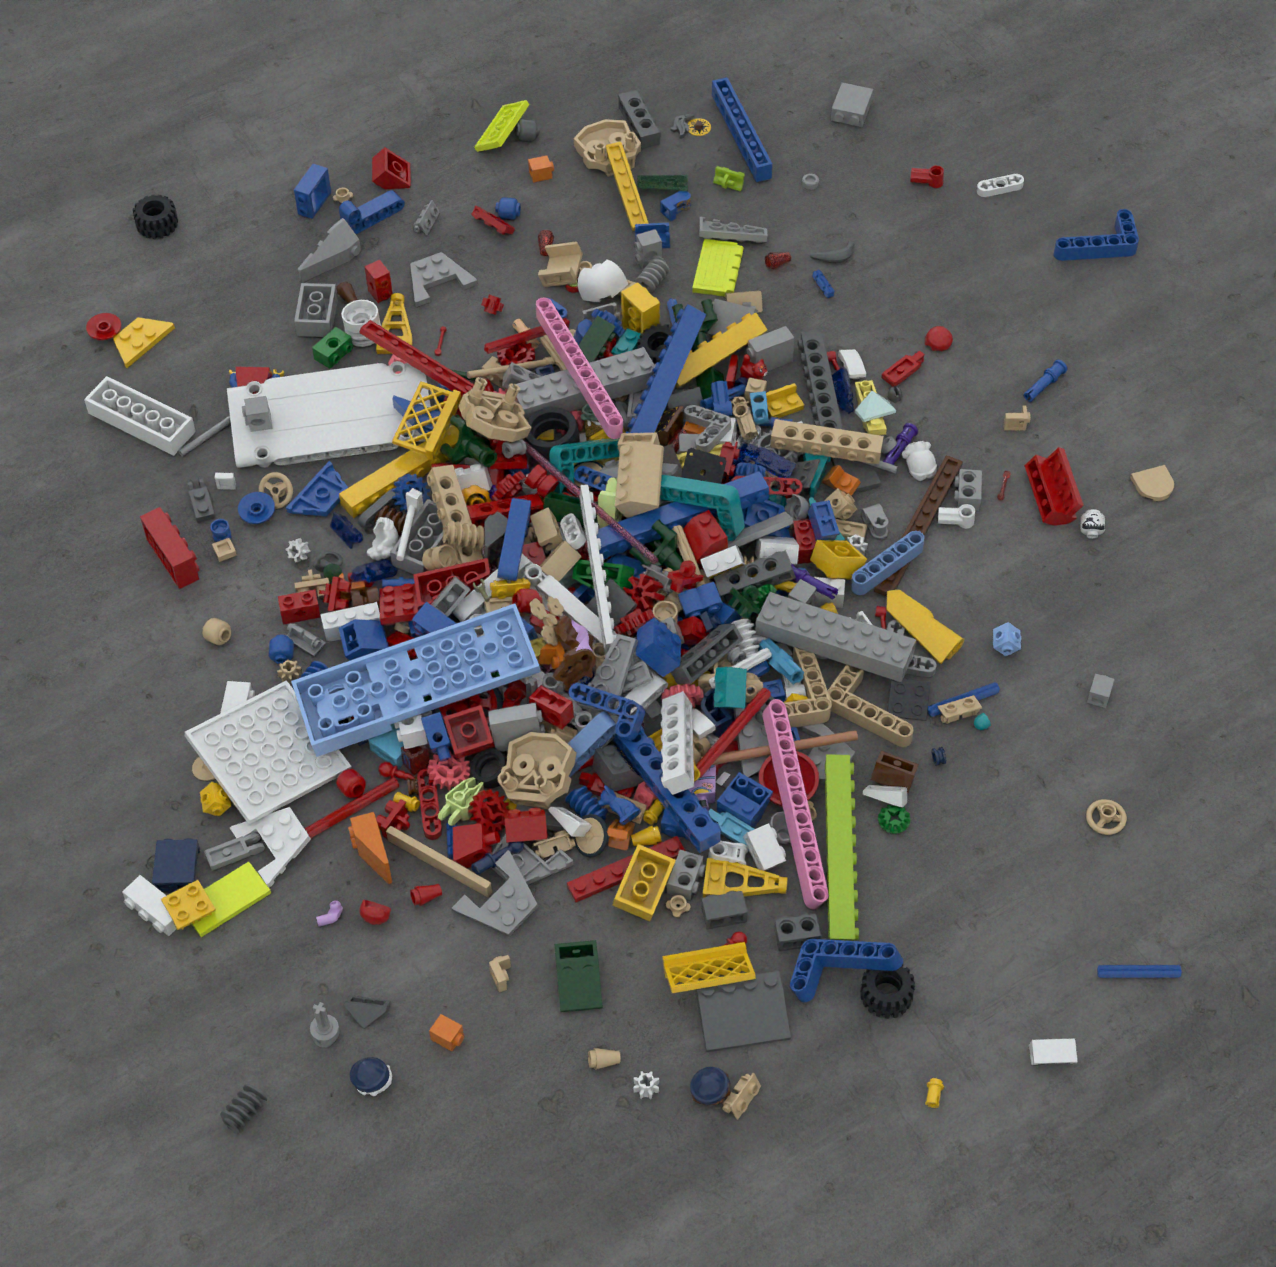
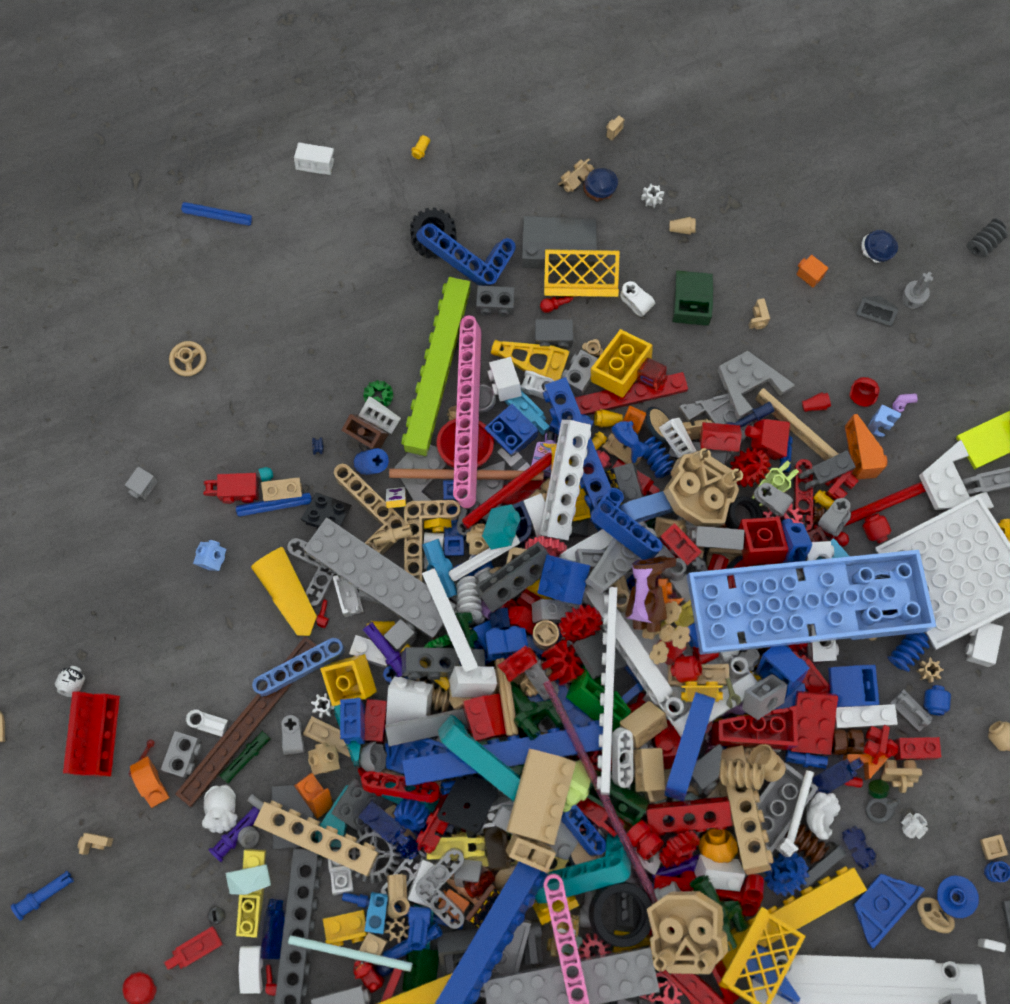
camera: 170 degrees left, 20 degrees up
(355, 880) = (885, 418): none -> light blue hinge
(396, 776) = (836, 517): none -> light grey piece
(407, 819) = (829, 469): none -> dark grey hinge
(462, 774) = (775, 500): none -> light grey piece
(608, 878) = (652, 374): none -> clear red brick
(641, 964) = (638, 300): none -> white piece
(708, 1161) = (614, 127): none -> tan plate
(758, 599) = (450, 621): none -> white sticker
(772, 376) = (350, 953): none -> light aqua piece
(835, 677) = (392, 535): none -> tan pin
(843, 715) = (395, 497): none -> tile
(878, 740) = (371, 461): none -> blue piece
(909, 503) = (252, 749): none -> dark green pin
(991, 463) = (147, 782): none -> orange brick
(1008, 703) = (234, 487): none -> red brick

